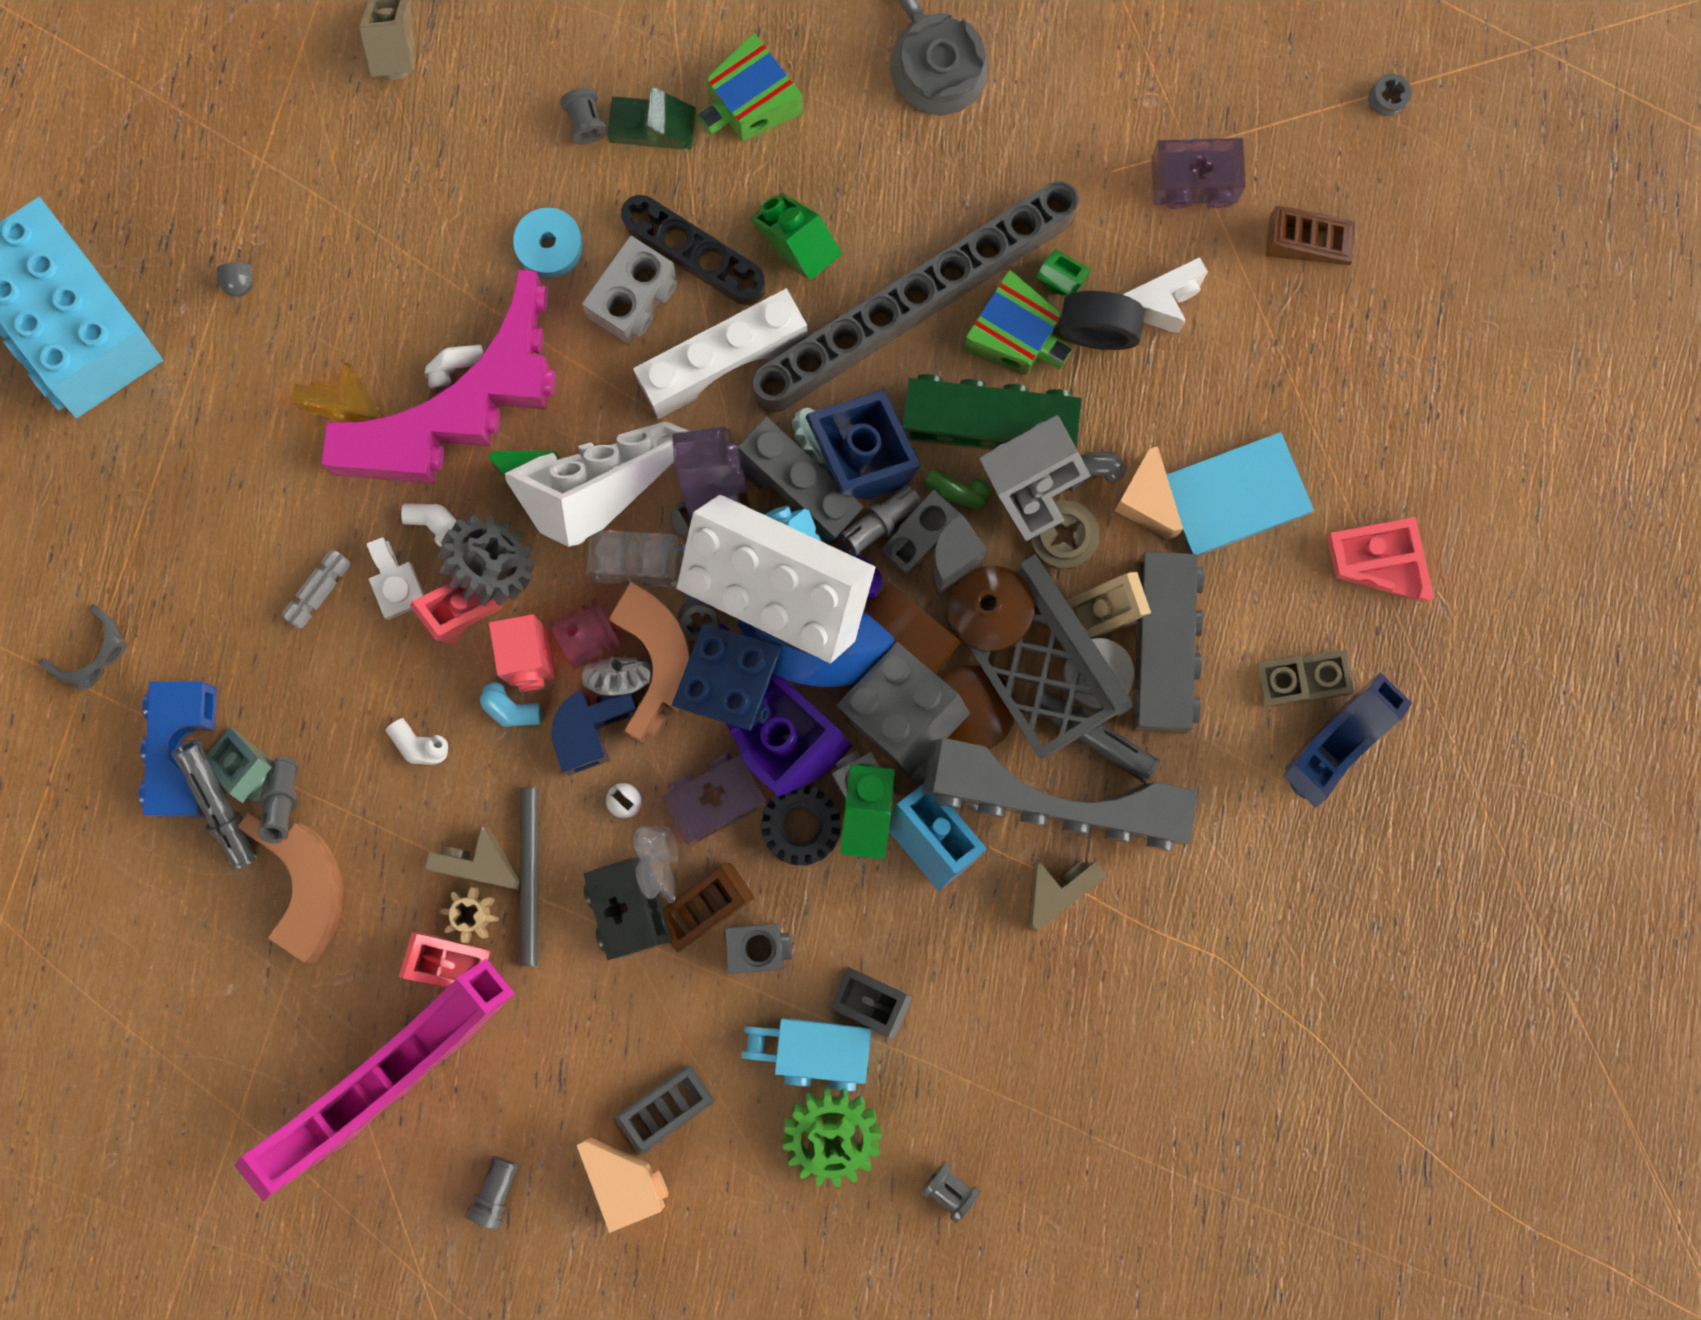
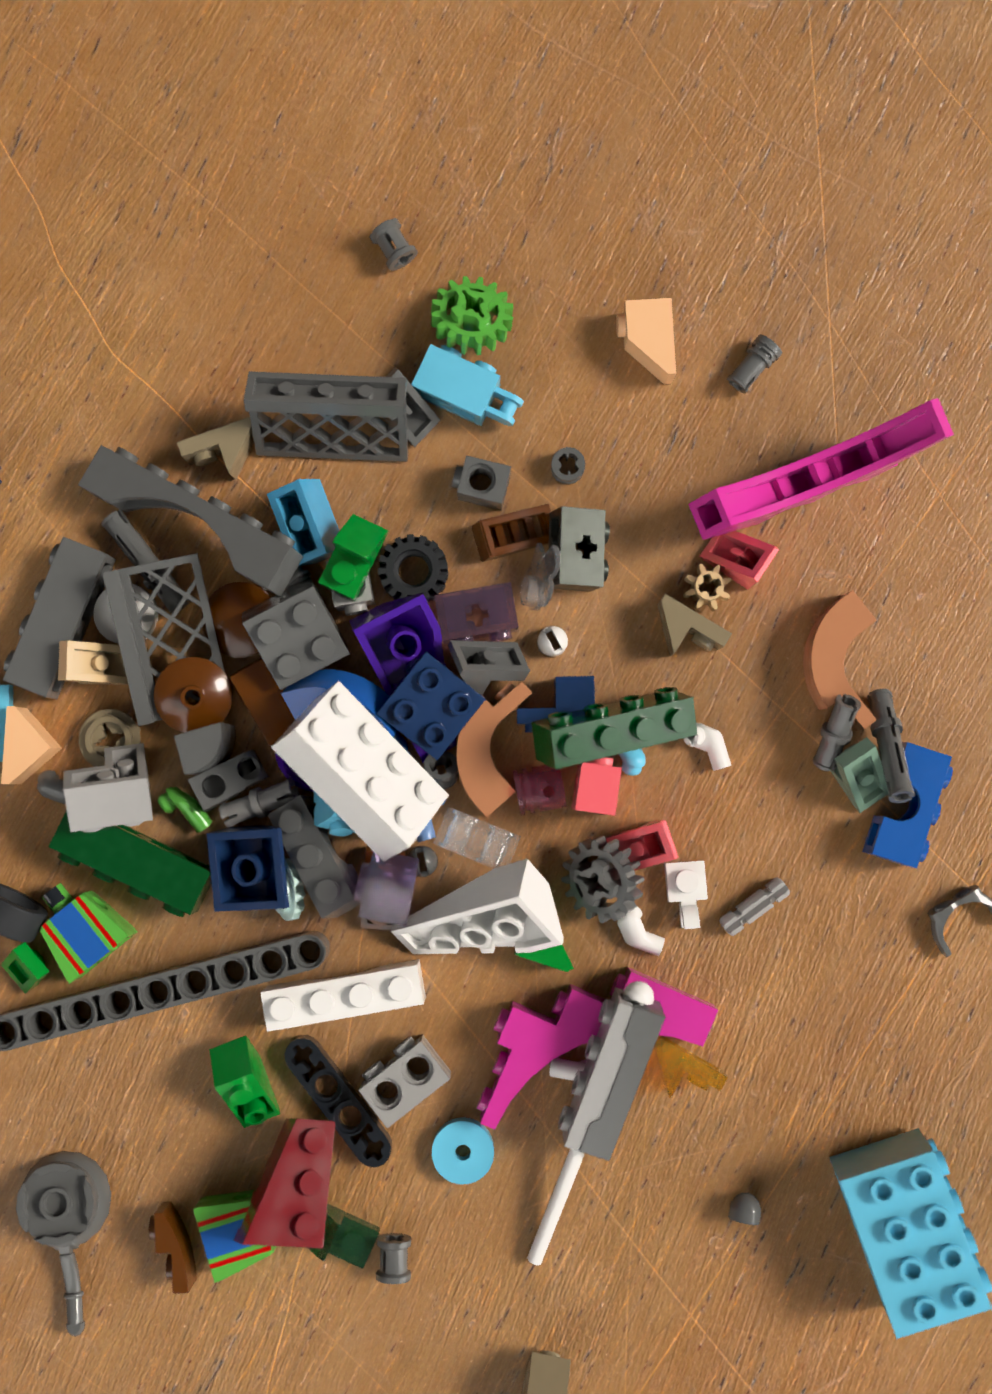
camera: 160 degrees left, 5 degrees up
(416, 344) = (603, 1091): none -> piece
(521, 719) = (614, 727): none -> dark green brick
(529, 877) = (649, 605): dark grey bar -> none
(617, 675) = (509, 739): light grey gear -> none
(630, 1132) = (618, 391): dark grey slope -> none
(656, 1008) = (556, 465): none -> dark grey bush
(683, 749) = (488, 661): none -> dark grey slope
(704, 145) = (294, 1189): none -> dark red wedge
(811, 59) = (172, 1237): none -> reddish brown slope
(943, 978) = (329, 397): none -> dark grey fence

